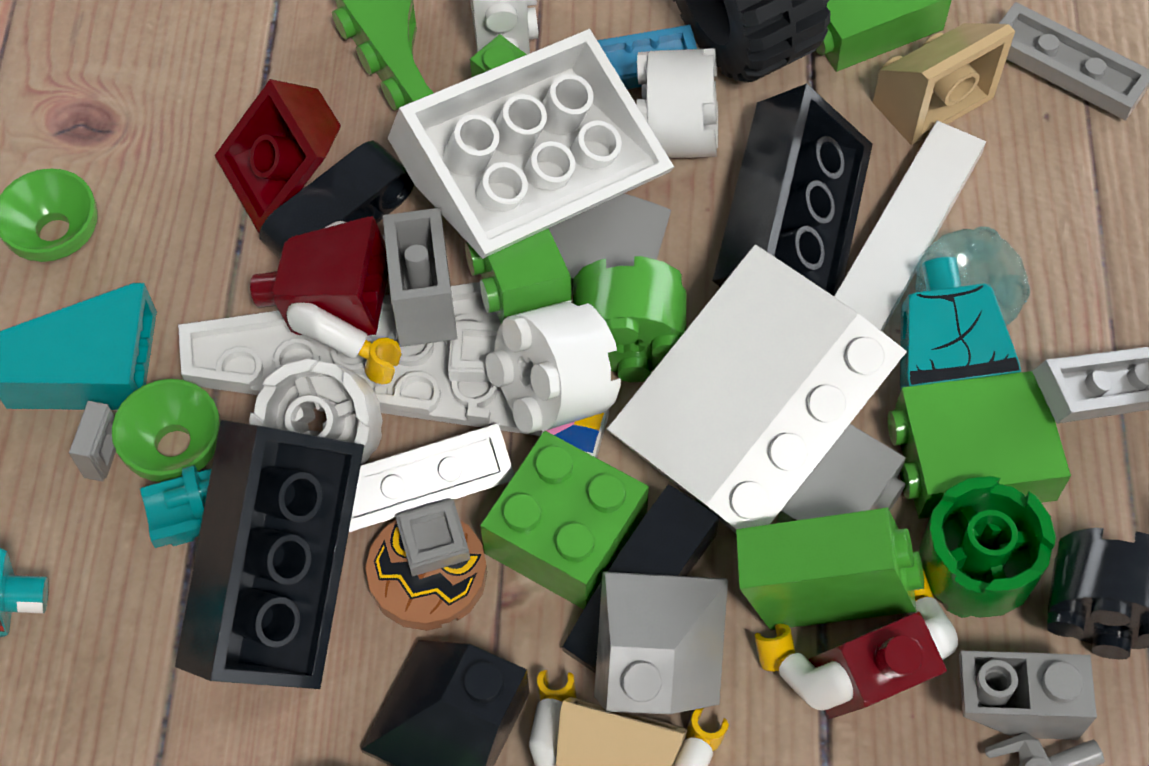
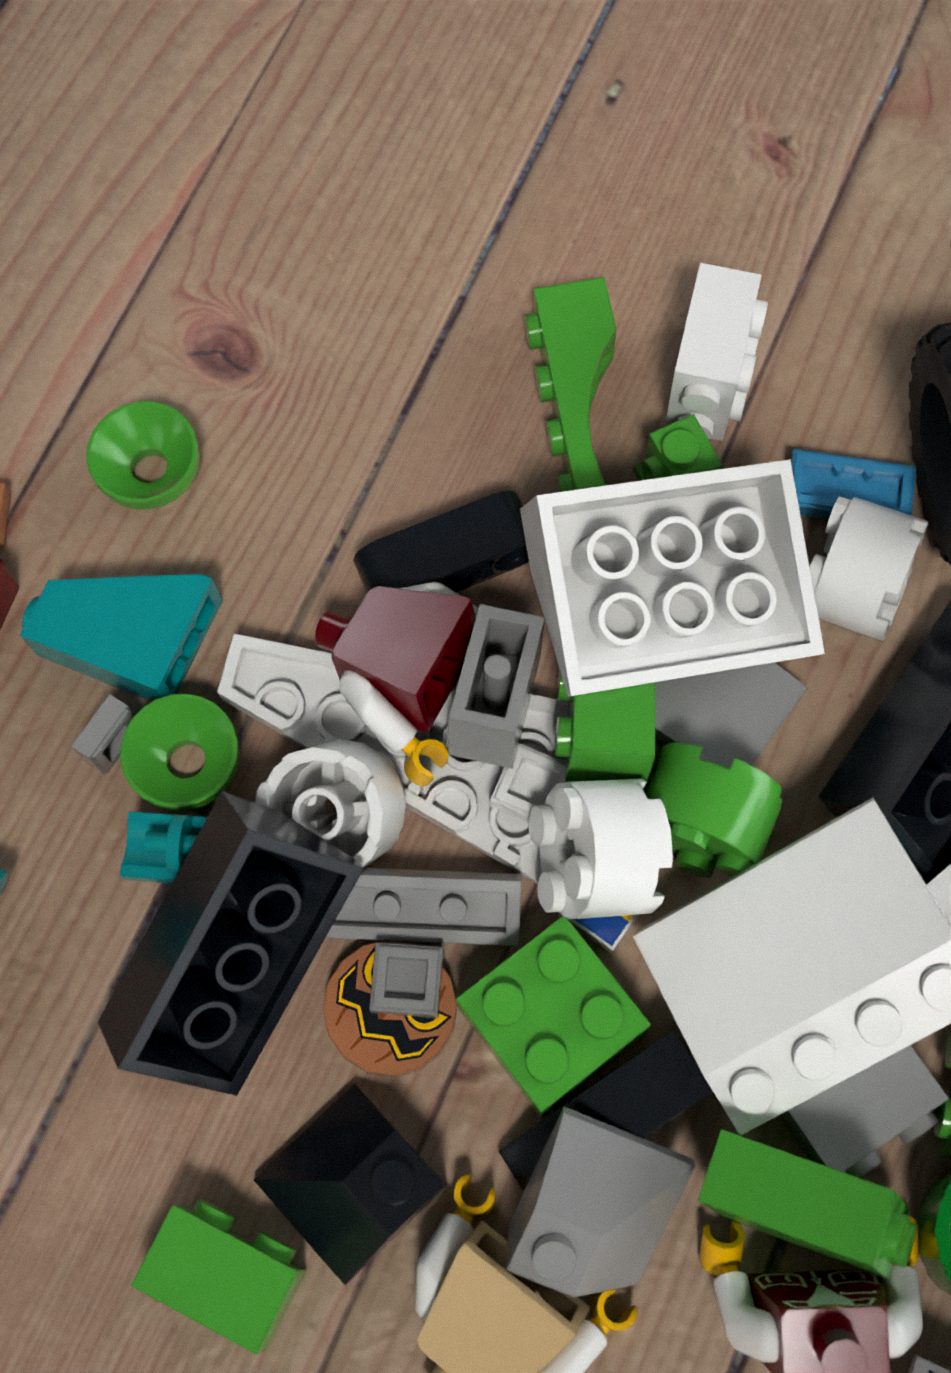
camera: 25 degrees right, 10 degrees up
(277, 146) = (410, 462): dark red slope -> none

